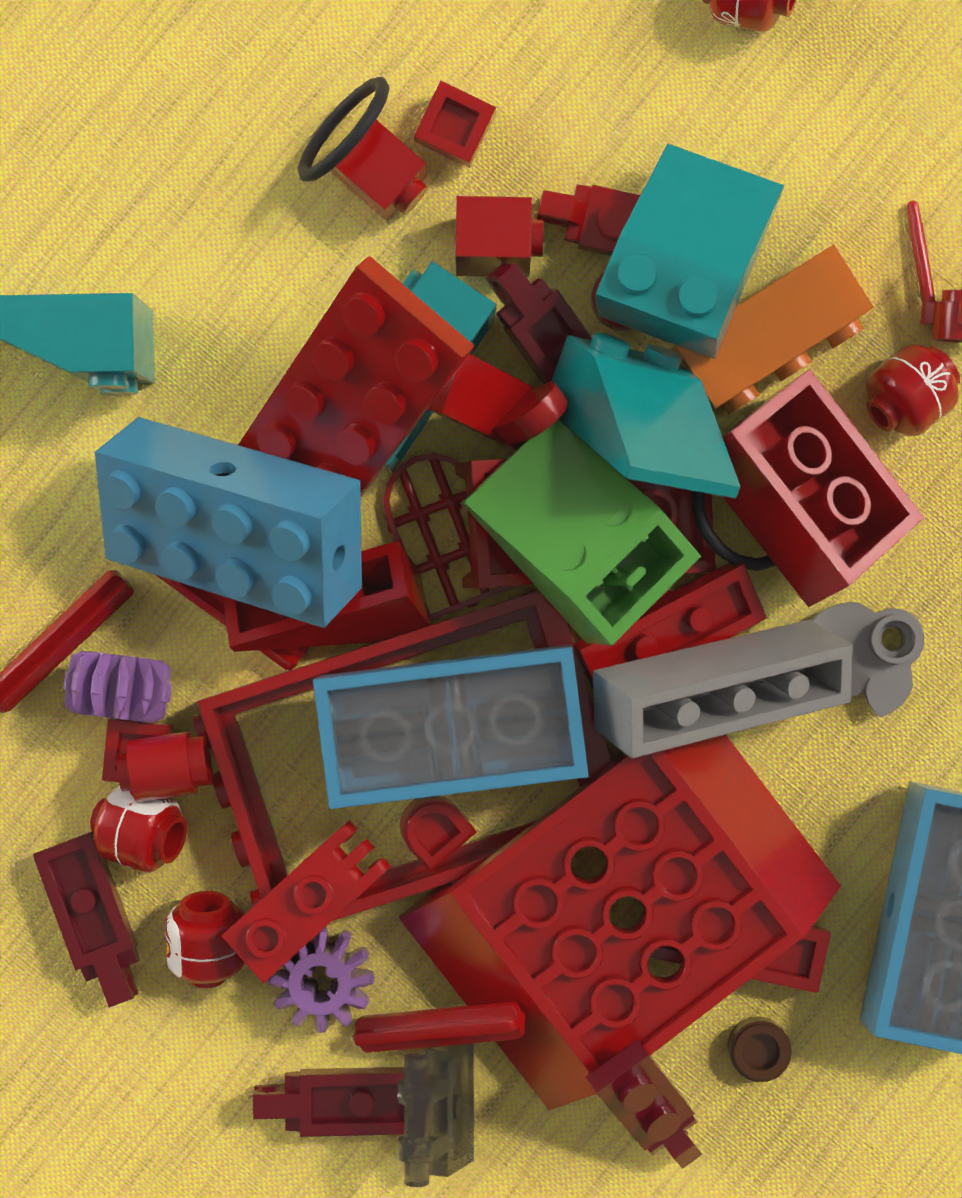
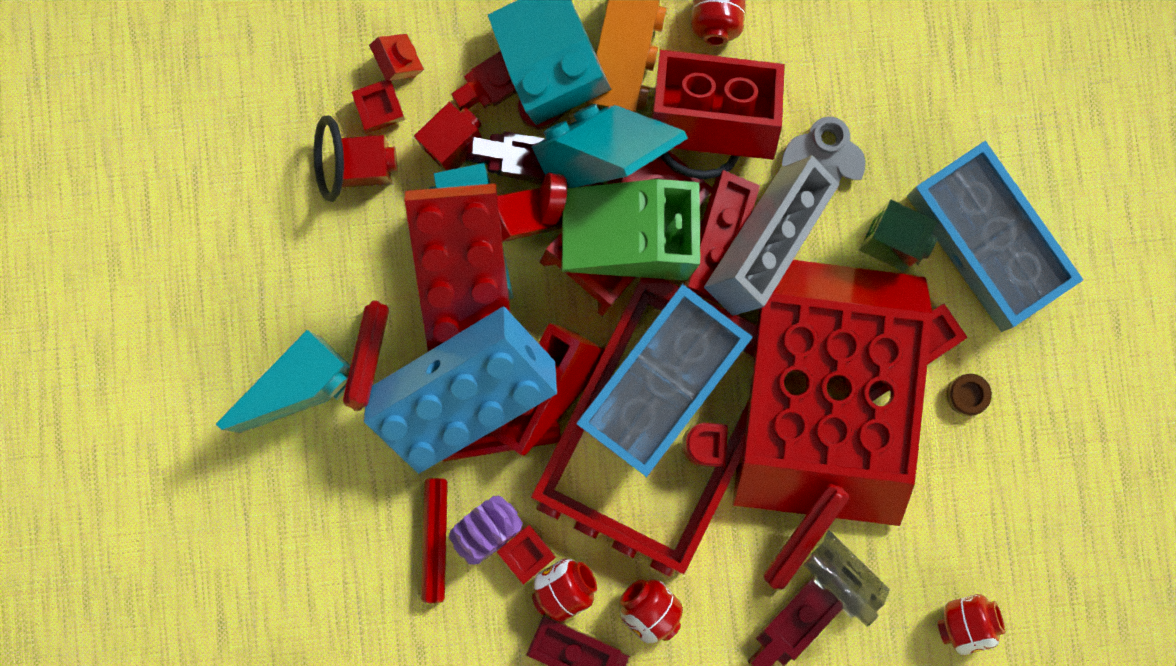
camera: 40 degrees left, 5 degrees down
(164, 766) = (547, 544): red brick -> none
(173, 380) = (366, 356): none -> red axle
(303, 904) = (680, 541): red hinge -> none
(305, 991) = (726, 588): medium lavender gear -> none
(420, 514) = (545, 305): red window -> none
(525, 91) = (396, 57): none -> red plate
(646, 1103) = (941, 469): dark red hinge -> none
(855, 820) = (899, 236): none -> clear green brick

